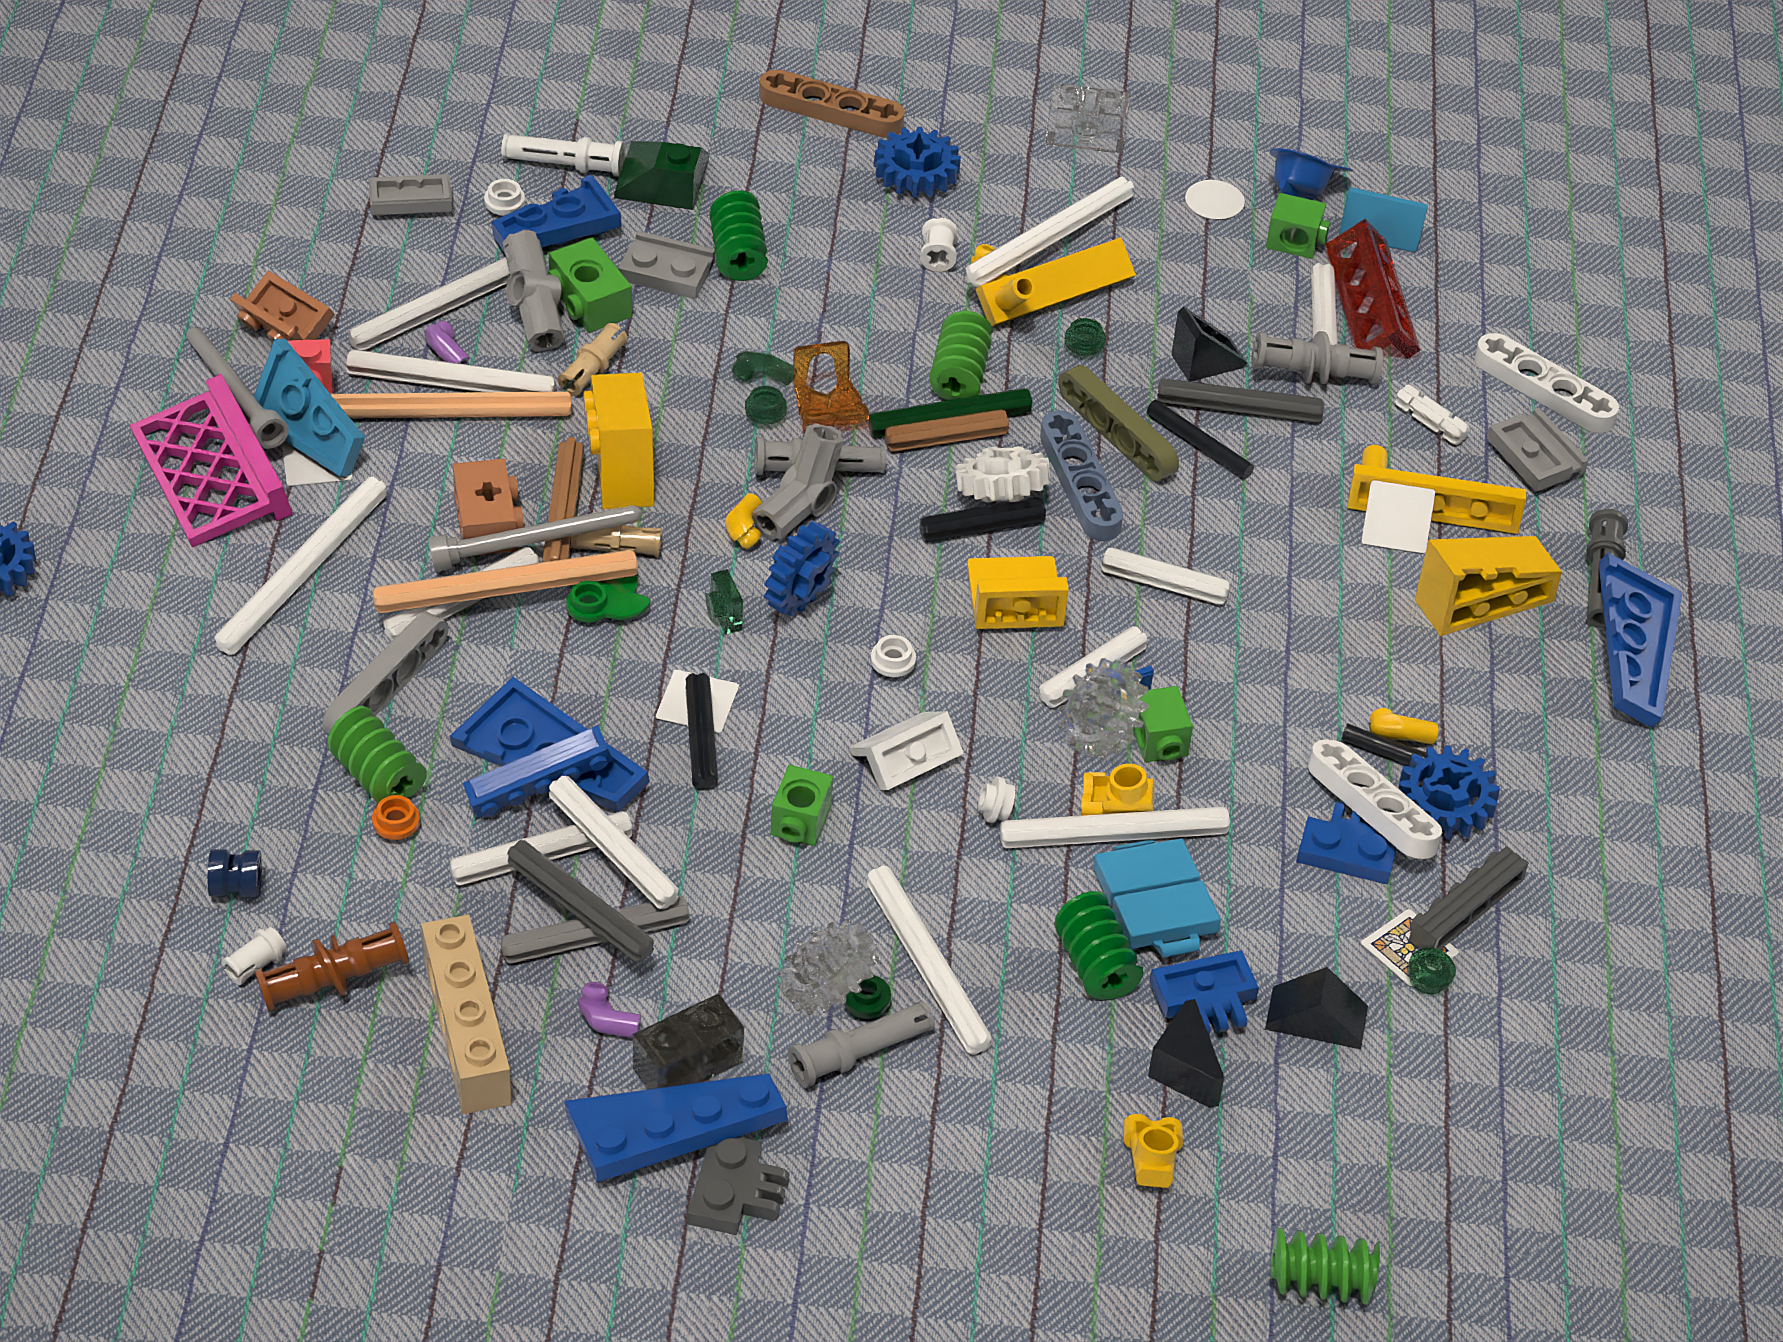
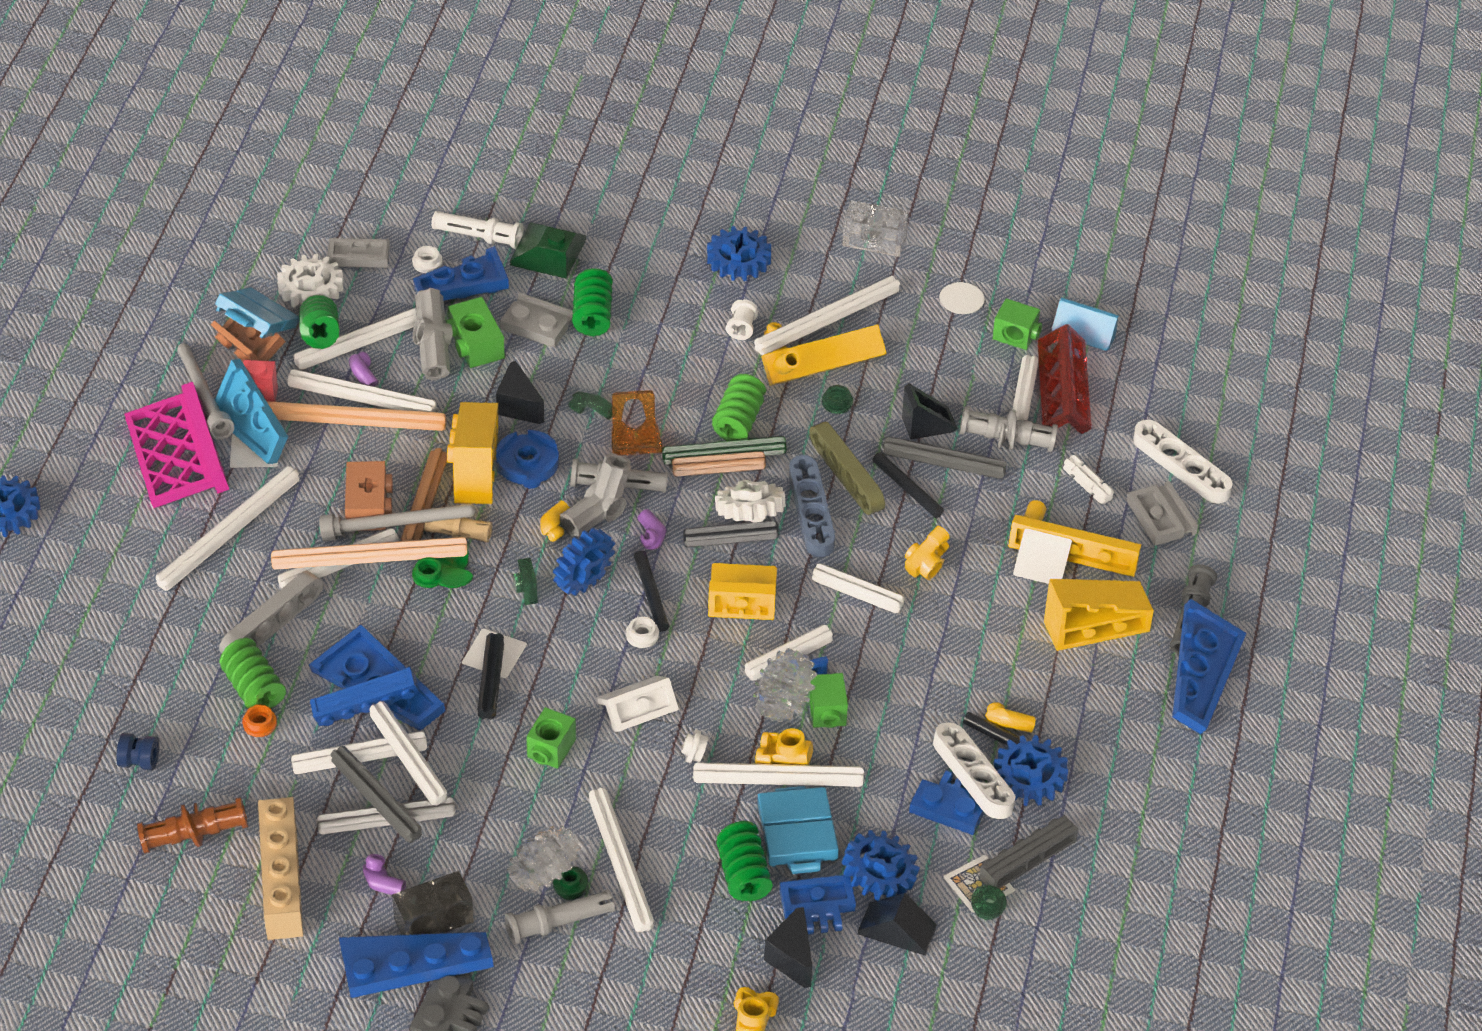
camera: 10 degrees right, 0 degrees up
(256, 954) = (142, 811): white pin -> none
(292, 276) = (256, 311): none -> dark azure piece
(353, 235) = (309, 278): none -> white gear
(378, 285) = (319, 321): none -> green piece
(592, 359) = (467, 389): tan pin -> none
(667, 363) = (518, 397): none -> black slope
(692, 460) = (532, 471): none -> blue plate
(766, 405) = (588, 434): clear green plate -> none
(778, 91) = (654, 191): medium nougat beam -> none
(881, 522) = (654, 530): none -> medium lavender arm
(892, 600) = (651, 590): none -> black bar
(1247, 529) = (926, 558): none -> yellow plate
(1280, 934) = (880, 865): none -> blue gear
(1302, 173) = (1028, 286): blue piece -> none

